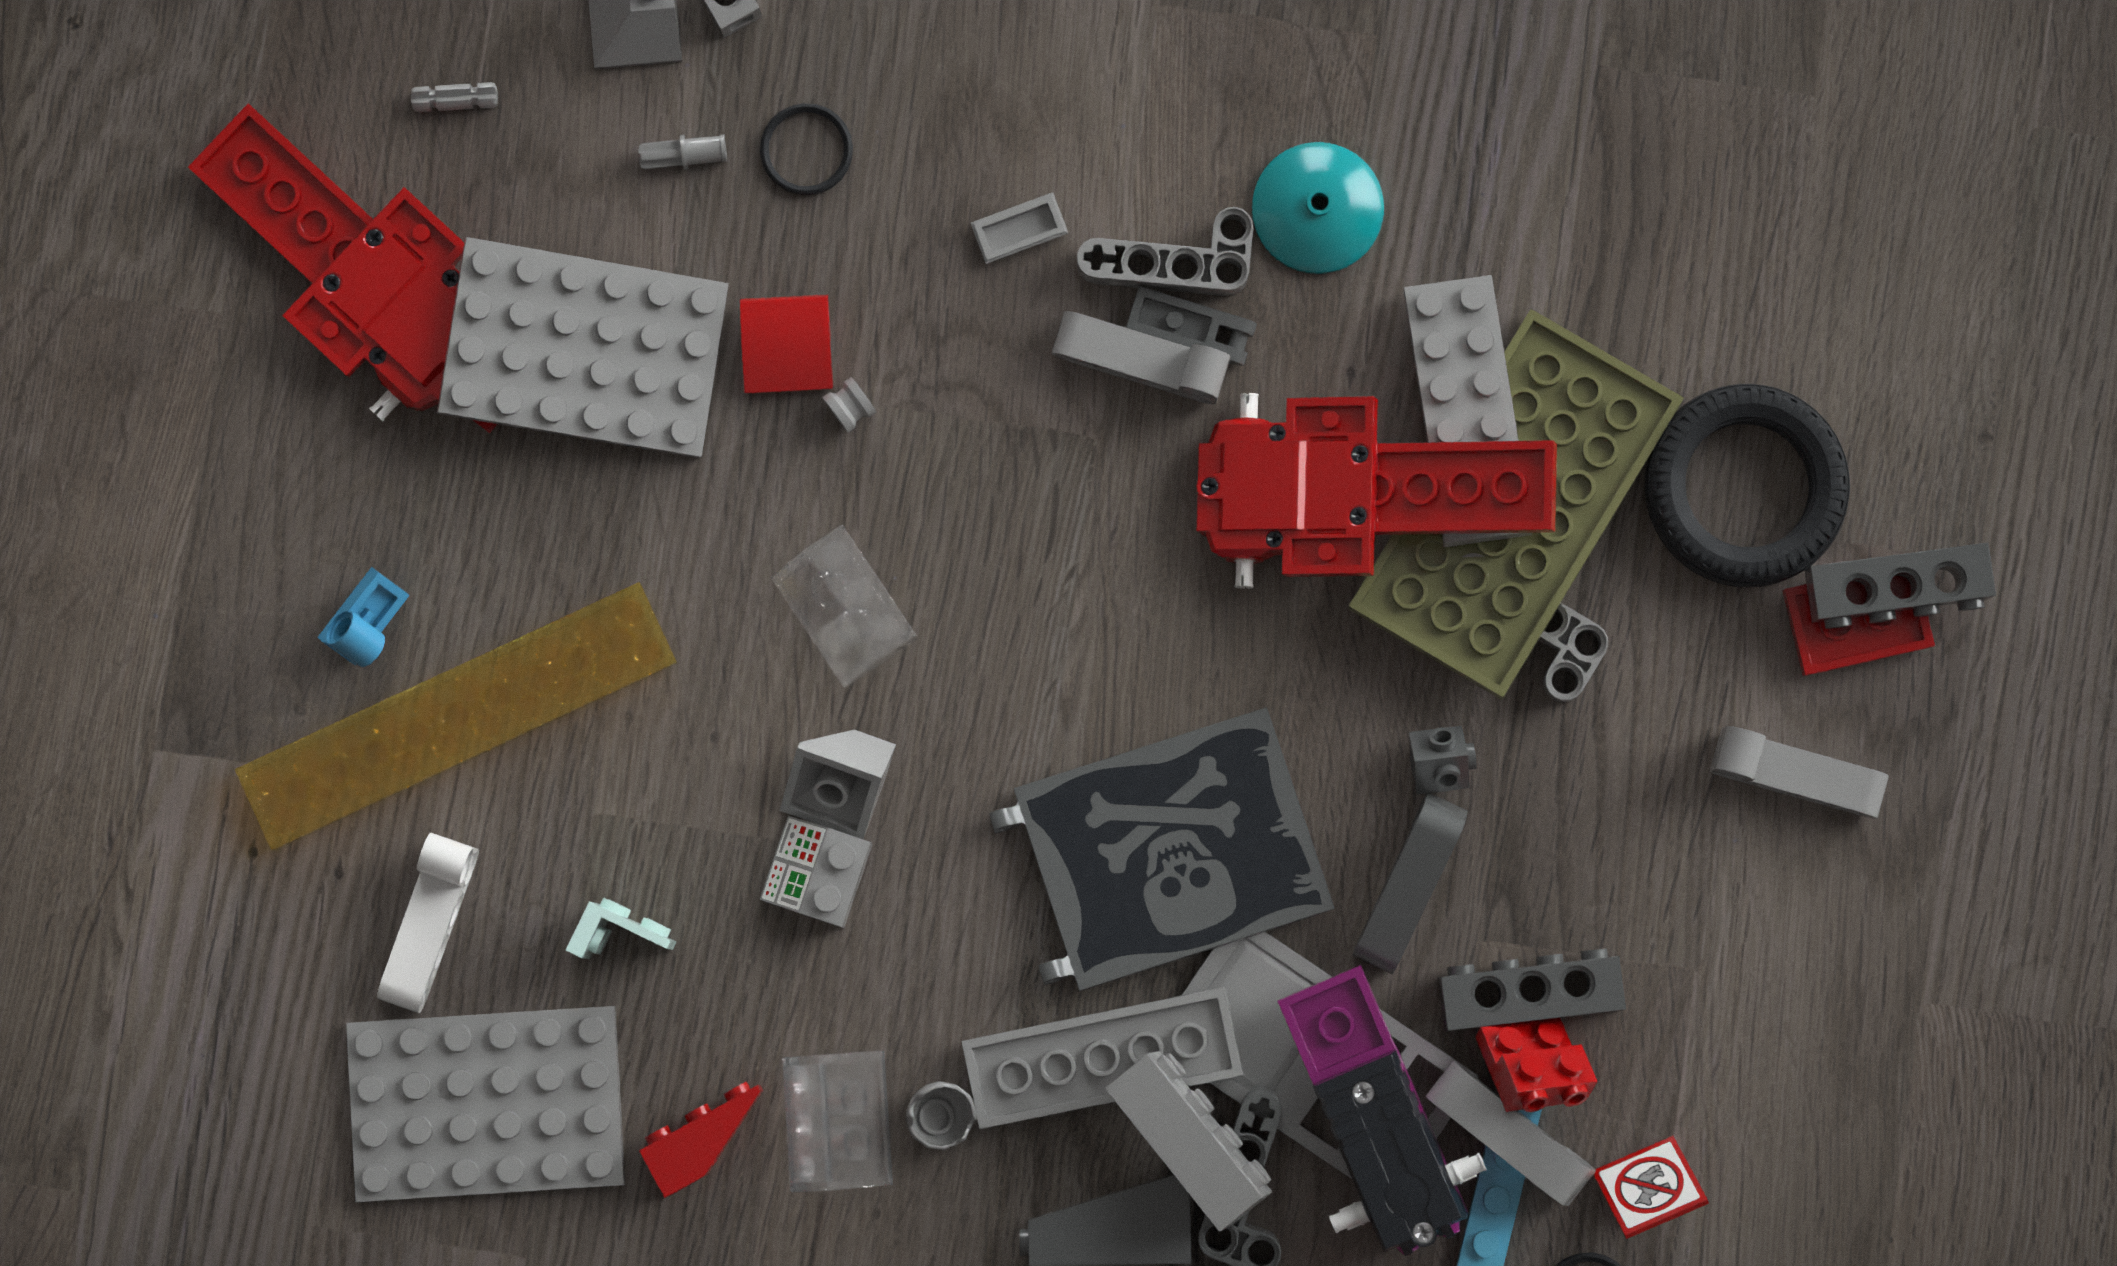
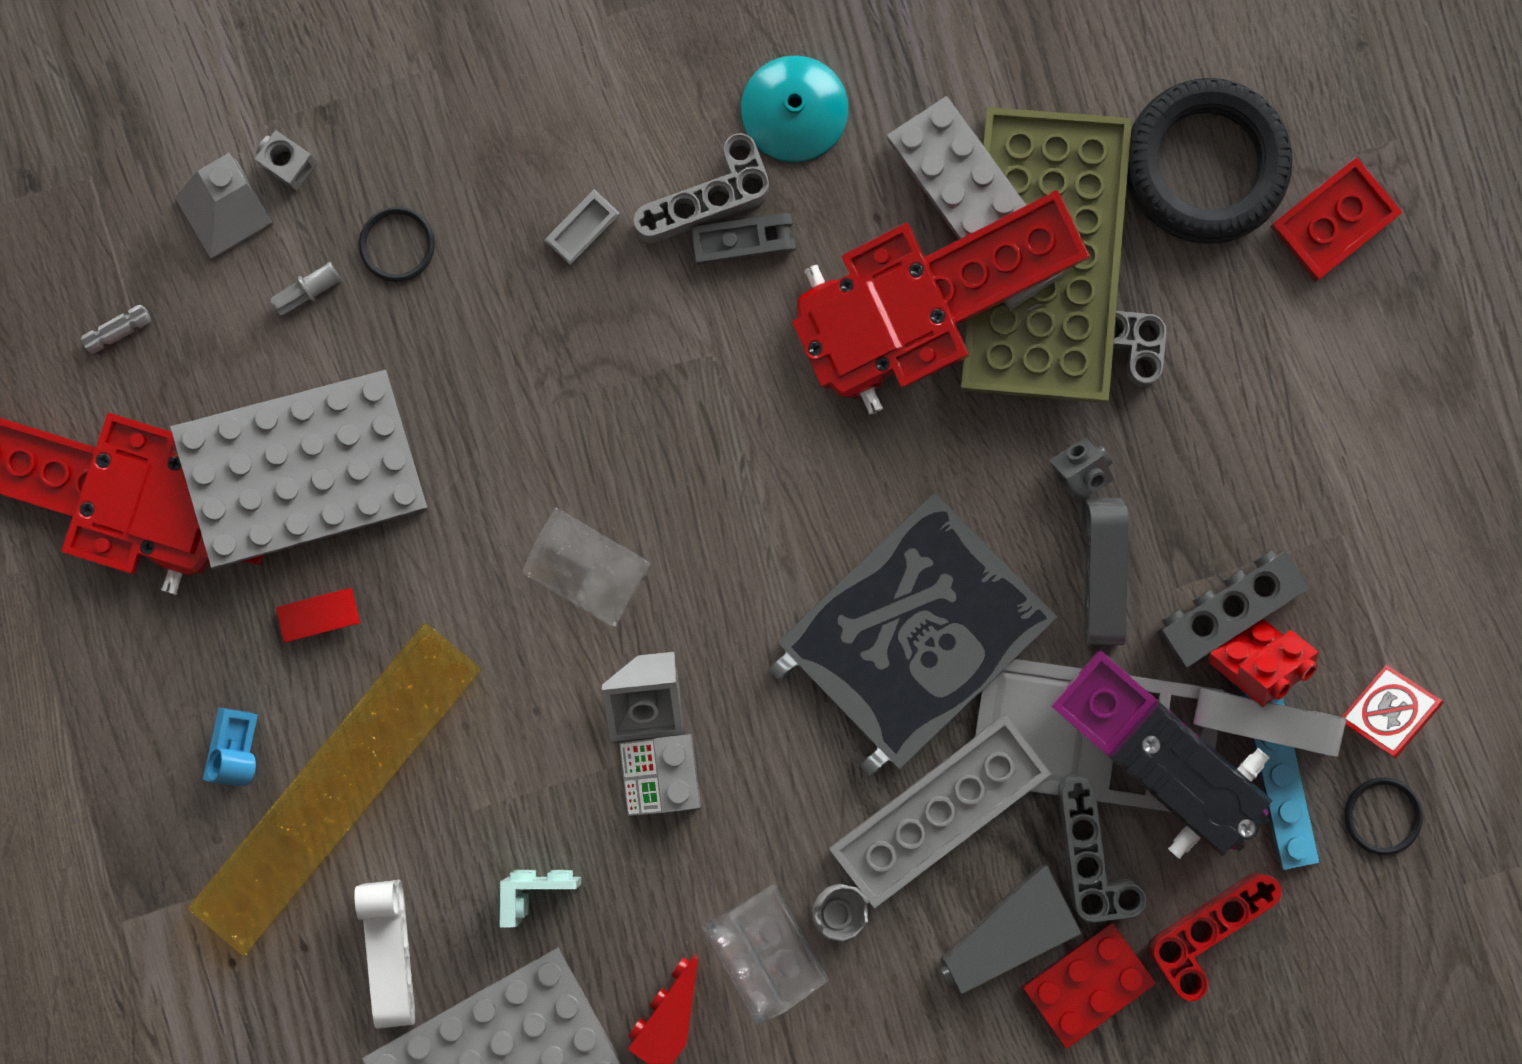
camera: 25 degrees left, 0 degrees up
(526, 518) = (318, 615): none -> red slope
(786, 343) = (450, 394): red slope -> none
(849, 404) = (518, 416): light grey wheel -> none
(1142, 357) = (719, 278): light grey beam -> none
(1190, 1139) = (1039, 843): light grey brick -> none
(1798, 773) = (1349, 353): light grey beam -> none
(1968, 565) = (1401, 141): dark grey brick -> none

